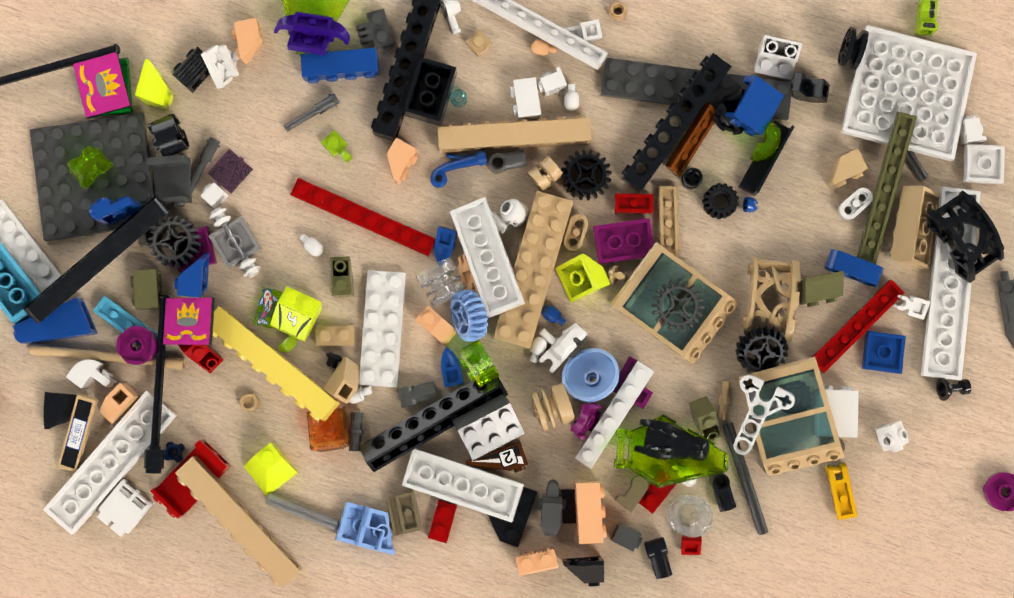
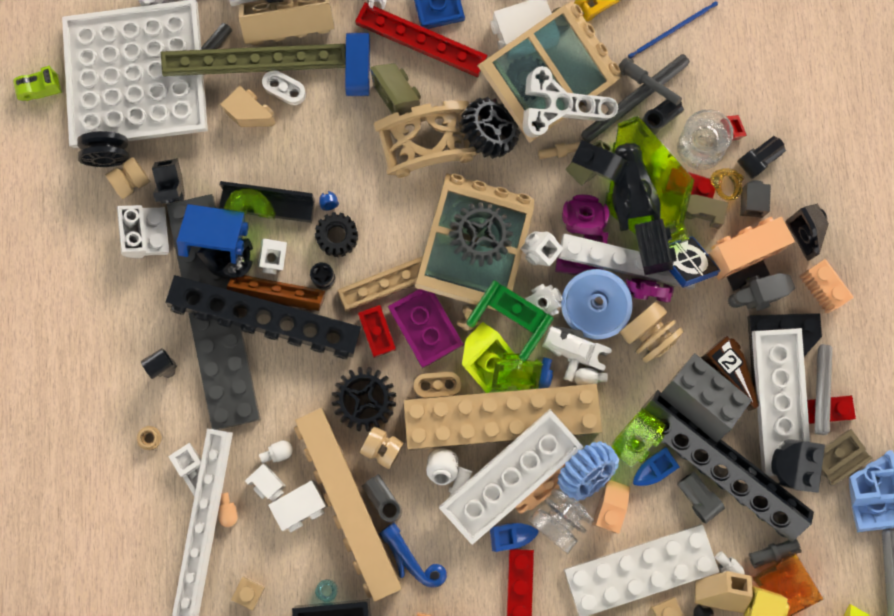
camera: 115 degrees left, 5 degrees down
(411, 475) = (799, 465): none -> black slope
(459, 521) = (823, 390): none -> light grey axle
(563, 294) = (515, 372): none -> clear neon green cylinder
(596, 459) = (692, 263): none -> tile
(607, 311) = (517, 310): none -> green plate
(607, 336) = (552, 296): none -> white brick
(617, 434) = (654, 246): none -> black brick
(649, 349) = (541, 248): none -> white brick
(653, 529) = (717, 178): none -> clear yellow piece
(654, 396) = (587, 225): none -> magenta plate
(668, 34) = (159, 364): none -> black piece
(699, 420) = (600, 161): none -> black brick
(725, 153) = (275, 247): none -> white brick
(771, 483) = (641, 76): none -> dark grey pin
(792, 535) = (678, 26): none -> blue piece
(824, 60) = (127, 178): none -> tan wheel

